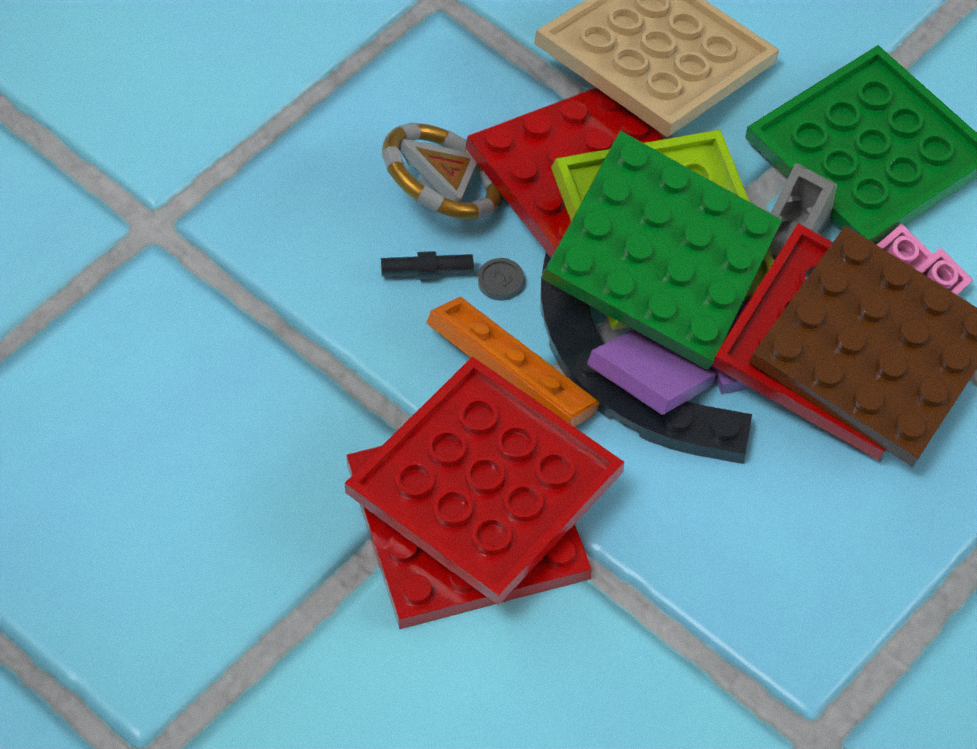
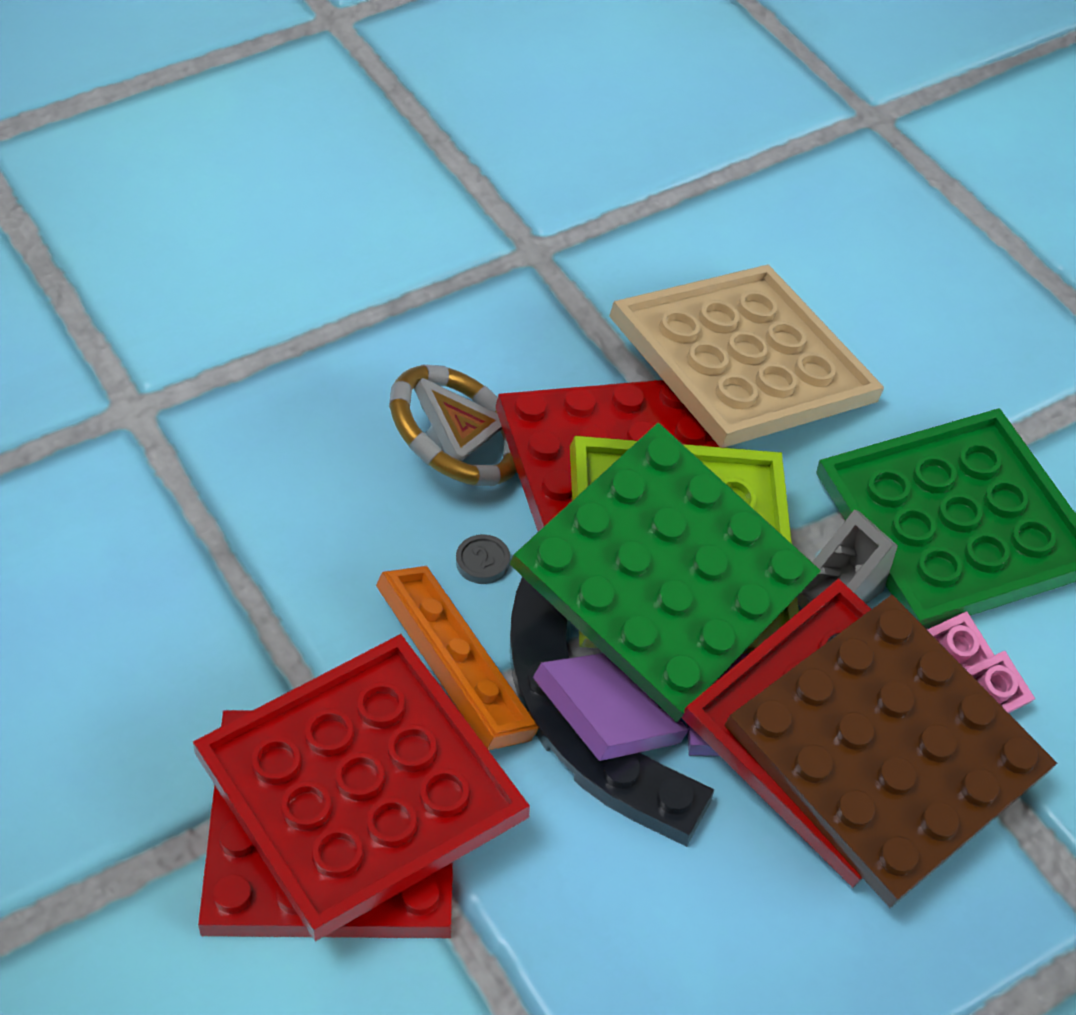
camera: 15 degrees right, 5 degrees down
(427, 265) = (405, 522): black bar -> none

